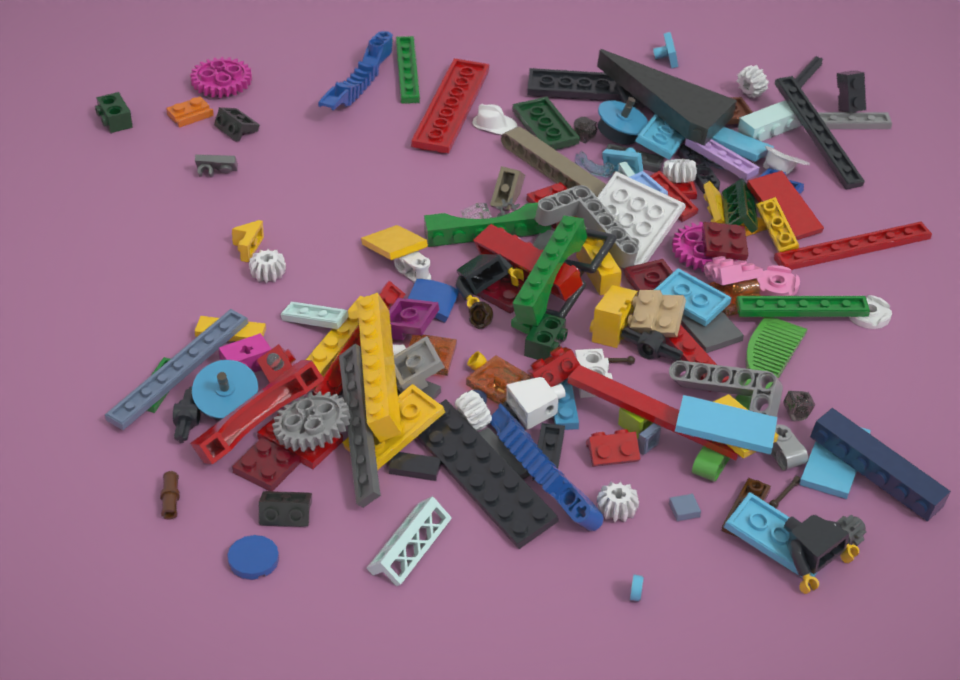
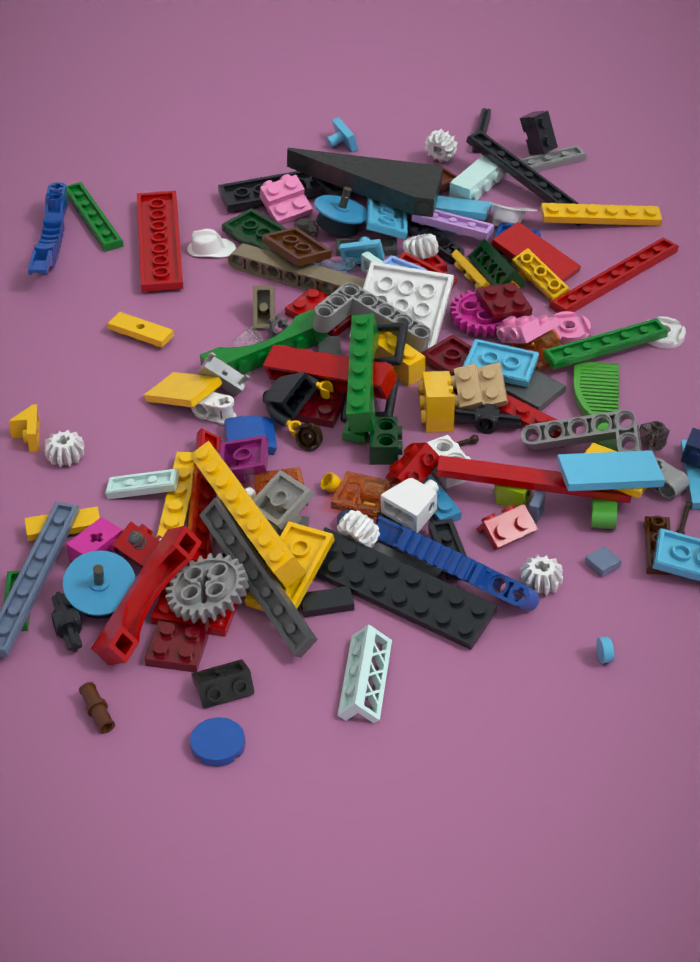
camera: 20 degrees left, 0 degrees up
(390, 180) = (141, 329): none -> yellow tile
(436, 239) = (231, 379): none -> light grey hinge
(563, 141) = (296, 246): none -> reddish brown plate
(580, 95) = (285, 199): none -> bright pink plate
(871, 184) = (601, 214): none -> yellow plate

